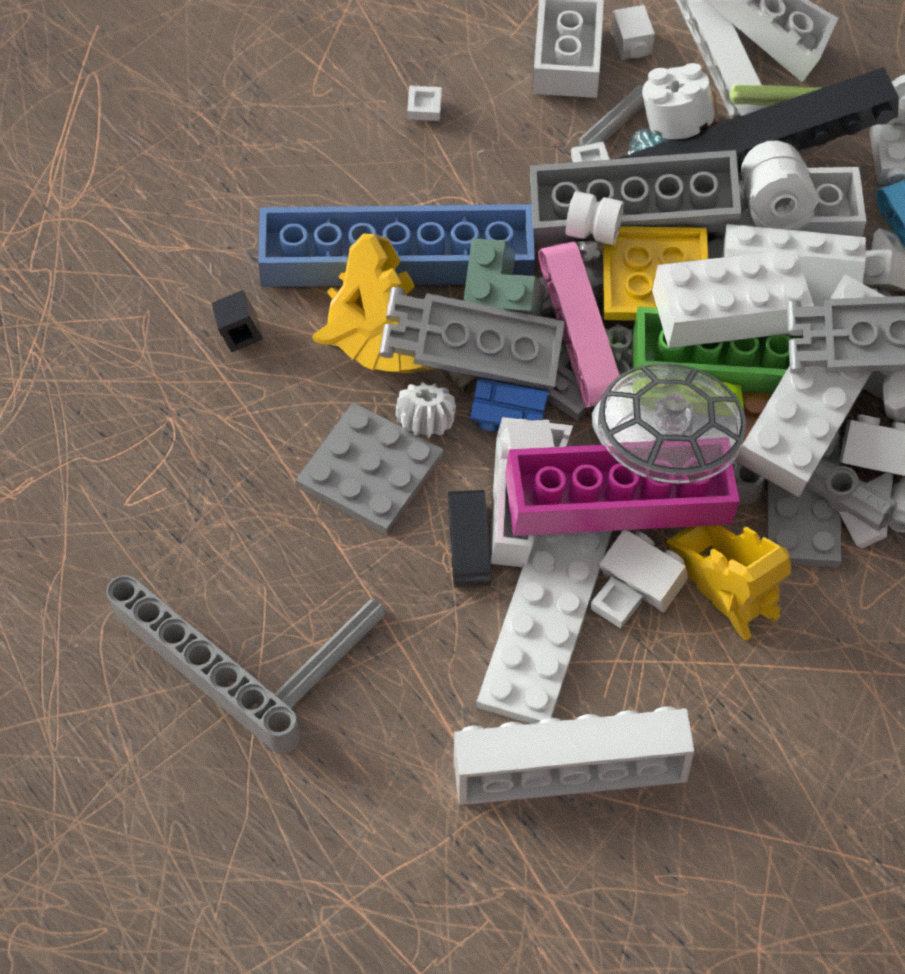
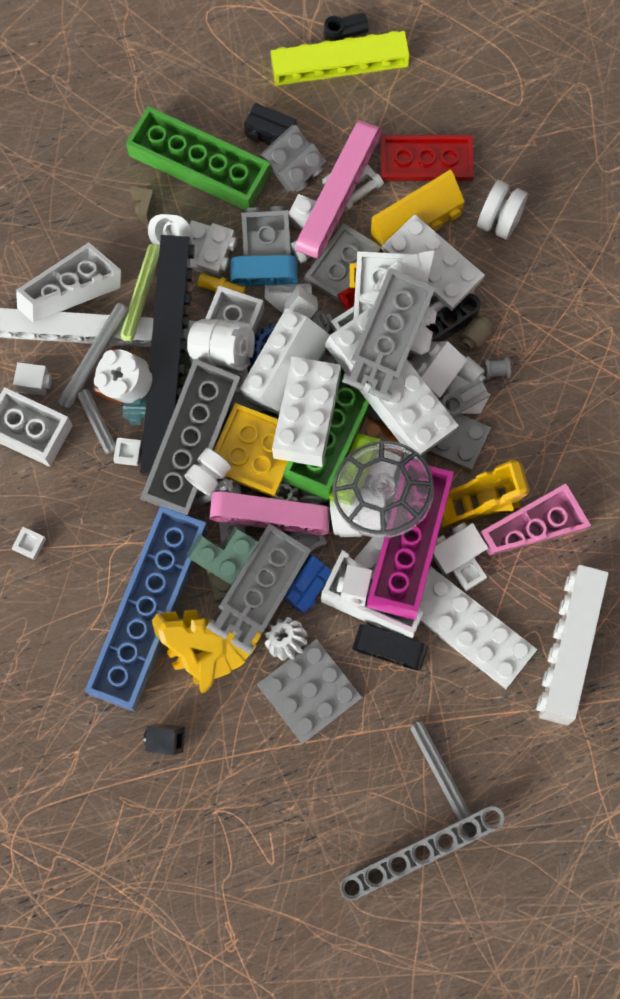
camera: 65 degrees left, 15 degrees up
(716, 75) = (93, 355): none -> light grey axle
(731, 656) = (539, 521): none -> bright pink wedge
(868, 182) = (211, 283): none -> yellow pin

